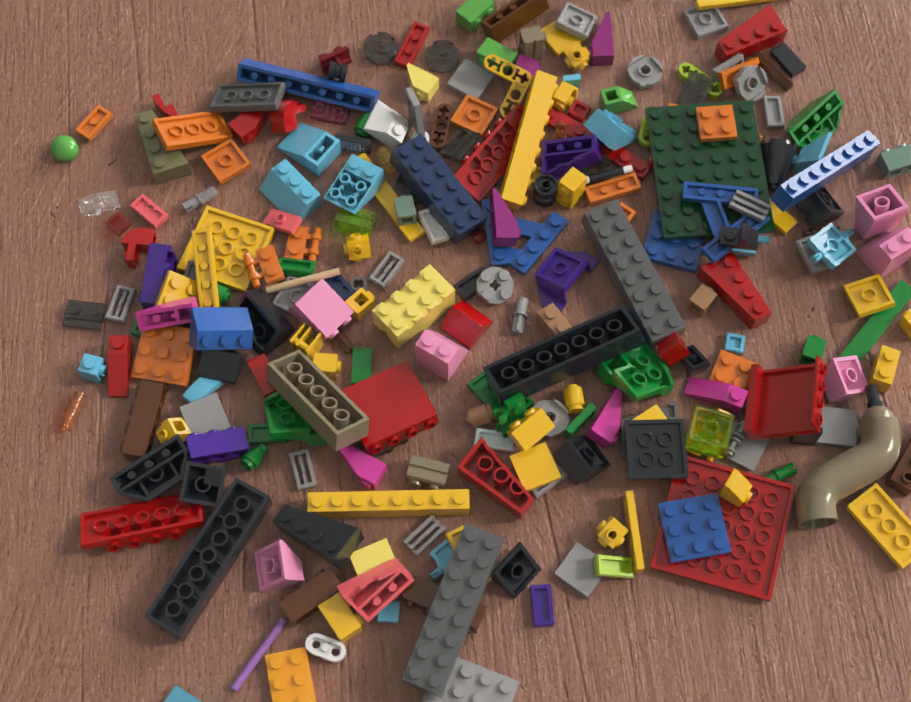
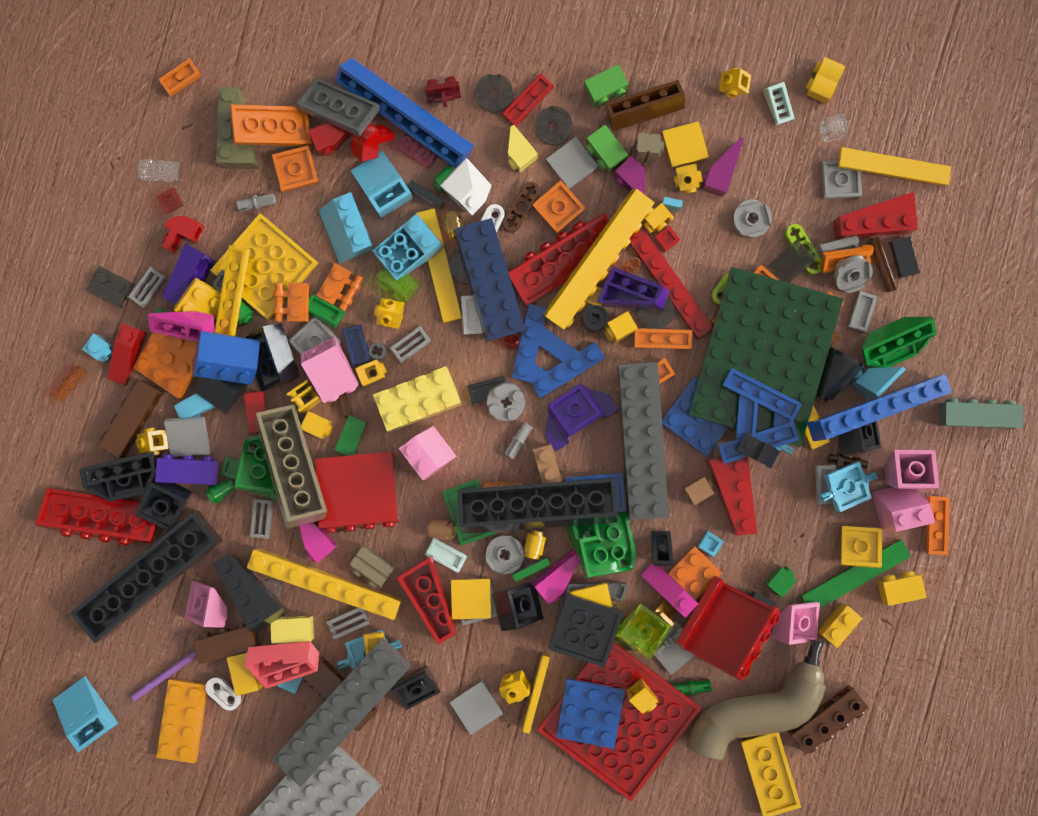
camera: 20 degrees right, 20 degrees up
(64, 148) = (143, 96): bright green hair -> none
(149, 211) = (203, 197): coral plate -> none
(167, 111) = (257, 92): red slope -> none
(282, 221) = (327, 257): coral plate -> none
(302, 280) = (324, 329): tan bar -> none
(337, 71) = (438, 109): black wheel -> none
(405, 210) = (448, 290): sand green brick -> none
(415, 111) = (497, 186): light grey tile -> none
(460, 145) = (531, 236): clear smoke plate -> none
(465, 324) = (465, 429): red slope -> none
(503, 223) = (537, 343): magenta slope -> none
(512, 410) = (469, 543): green plate -> none
(516, 84) = (612, 190): yellow beam -> none
(530, 428) = (478, 565): yellow brick -> none
(541, 605) = (427, 725): dark purple tile -> none
(576, 21) = (705, 134): light grey tile -> none
(608, 174) = (662, 324): black bar -> none
(610, 130) = (686, 279): medium azure slope -> none
(613, 566) = (504, 717): lime tile -> none
(616, 100) = (708, 243): bright green slope -> none
(672, 349) = (646, 532): red brick -> none
(716, 123) = (793, 313): orange plate -> none
(751, 203) = (794, 433): light grey tile -> none
(838, 427) = (771, 663): light grey tile -> none

